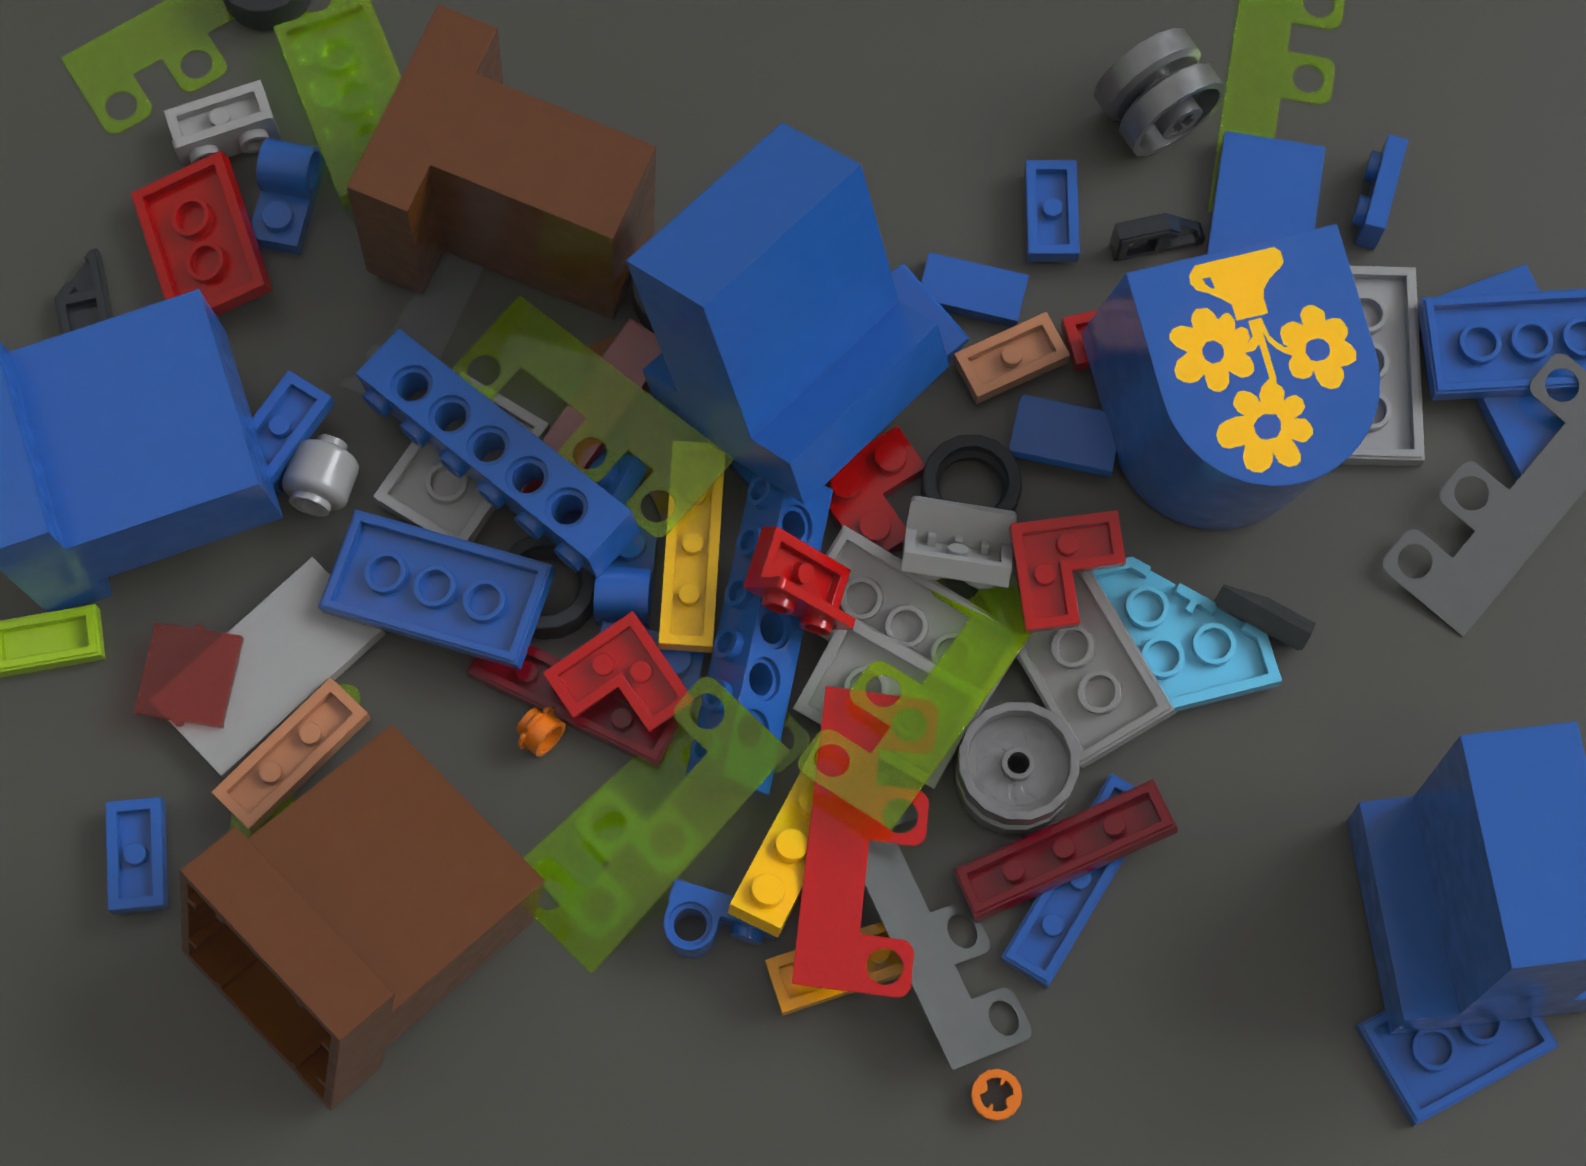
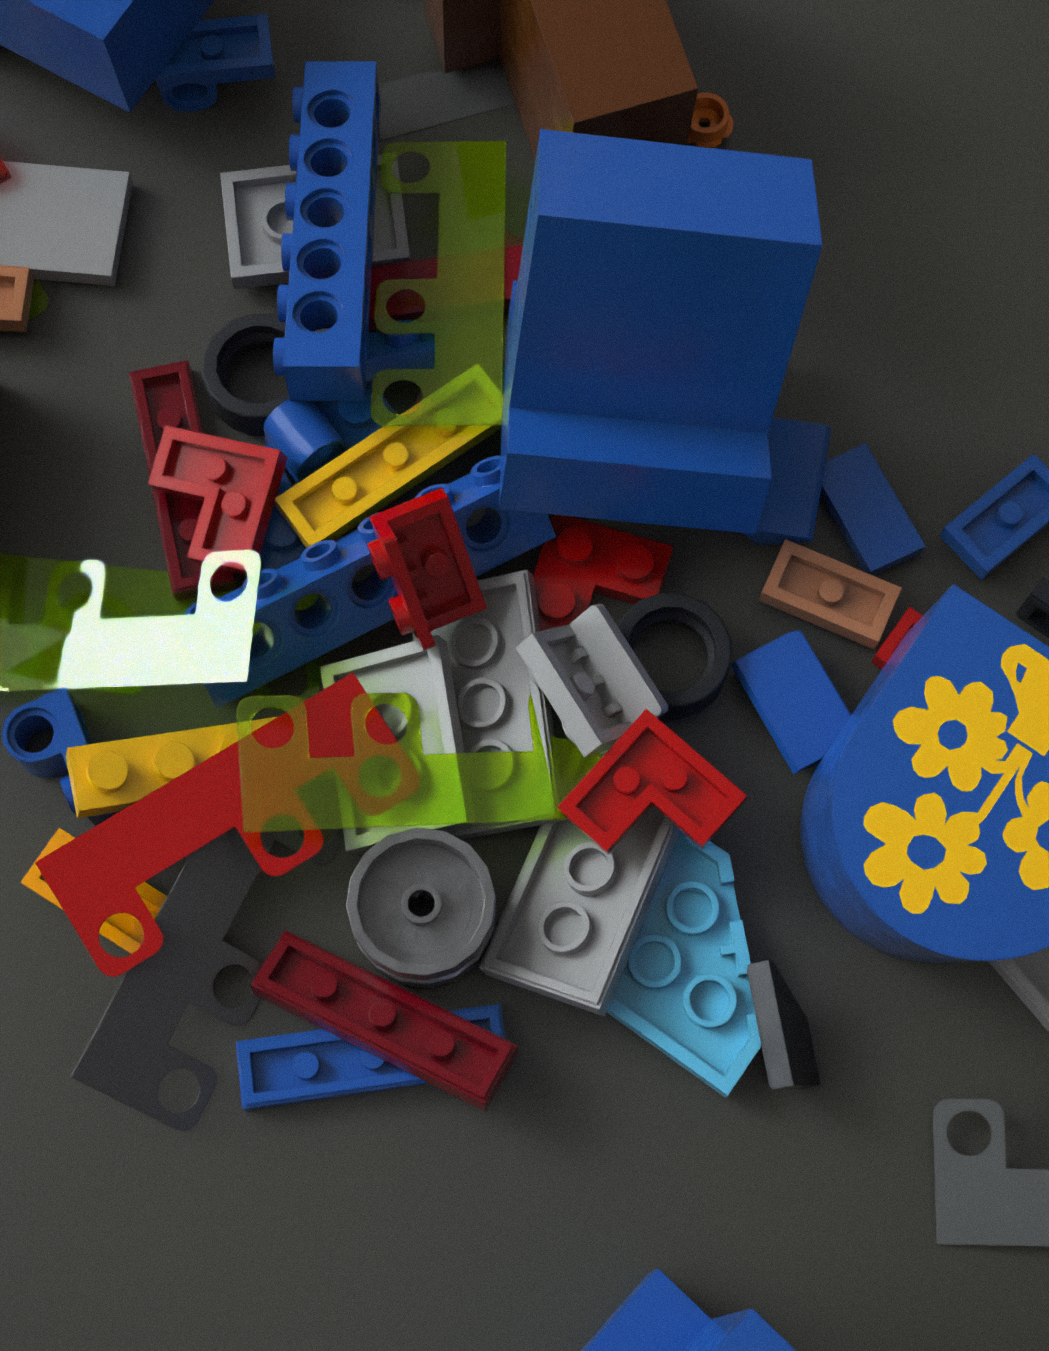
camera: 50 degrees right, 0 degrees up
(320, 476) = (203, 118): light grey head -> none
(437, 589) = (175, 286): blue tile -> none
(540, 730) = (123, 473): orange plate -> none
(1012, 1102) = (99, 1122): orange bush -> none

